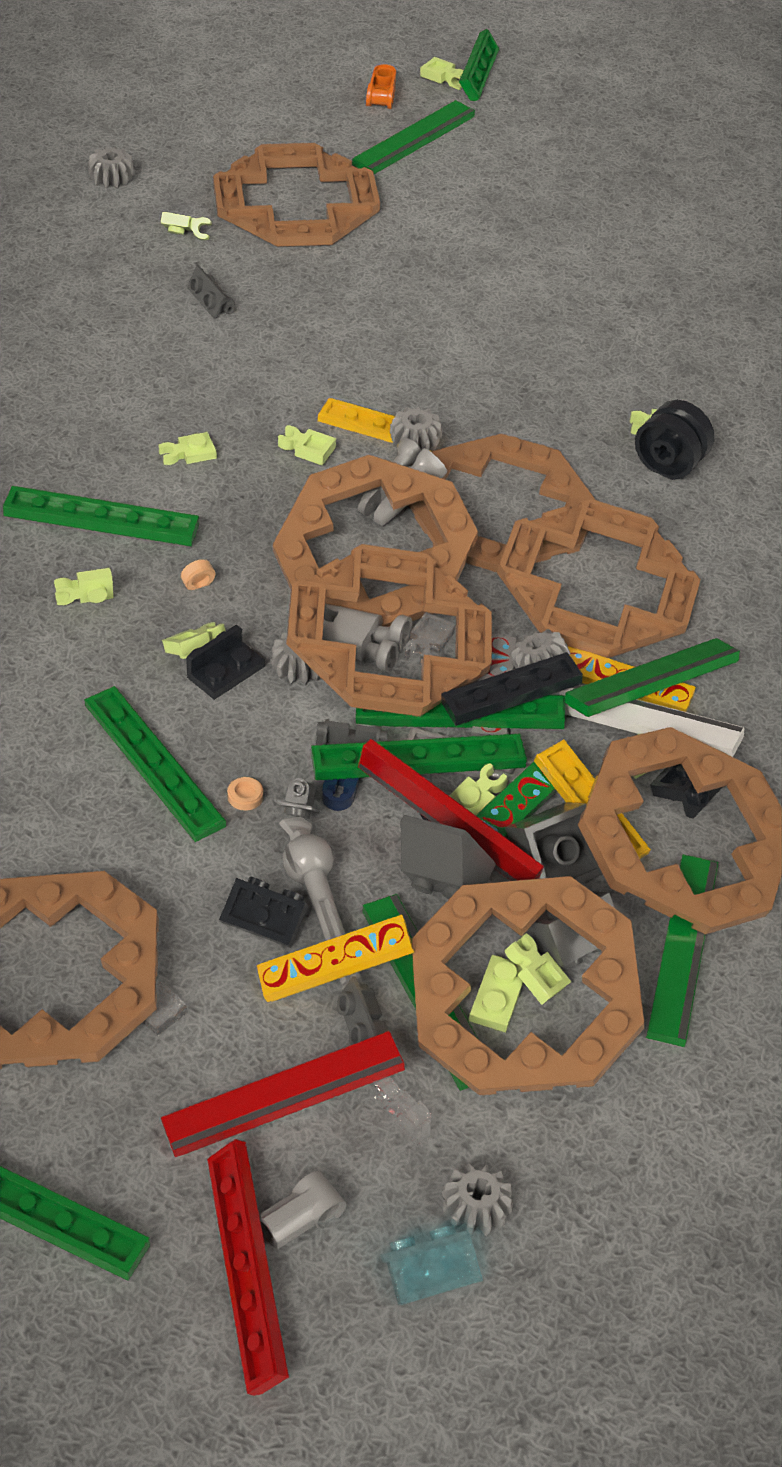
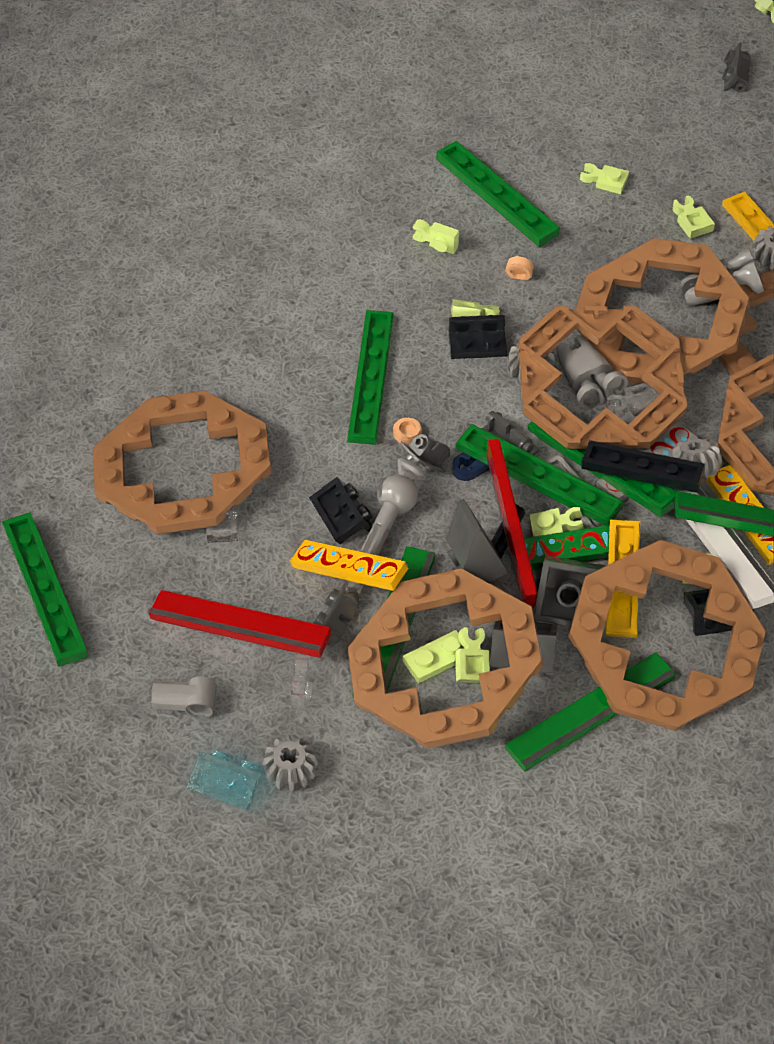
camera: 45 degrees right, 5 degrees up
(247, 1269) = (123, 704): red tile -> none

